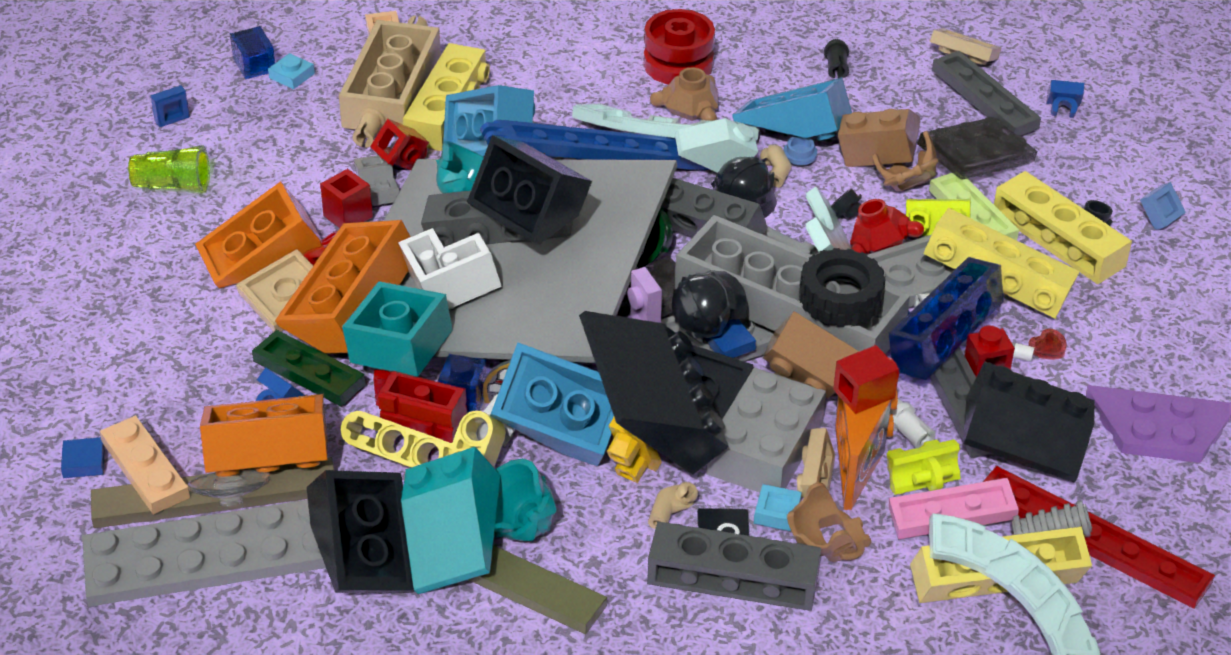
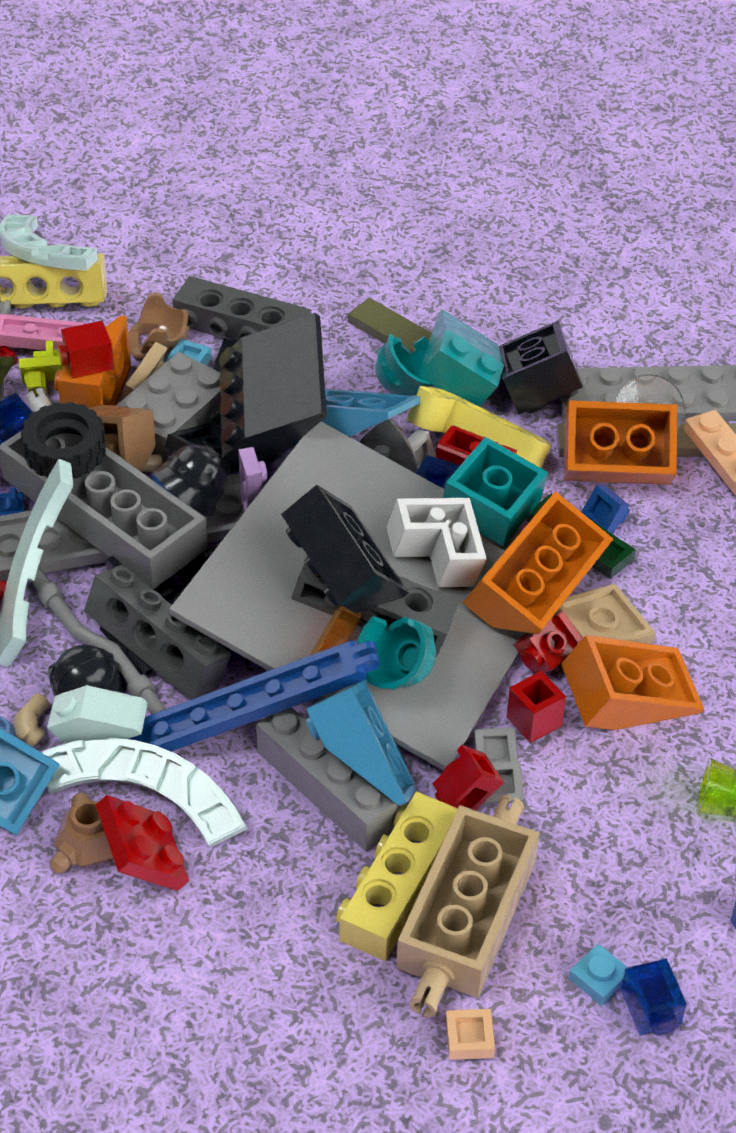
camera: 170 degrees left, 5 degrees up
(646, 77) = (142, 843): none -> red plate
(676, 42) = (78, 905): red wheel -> none

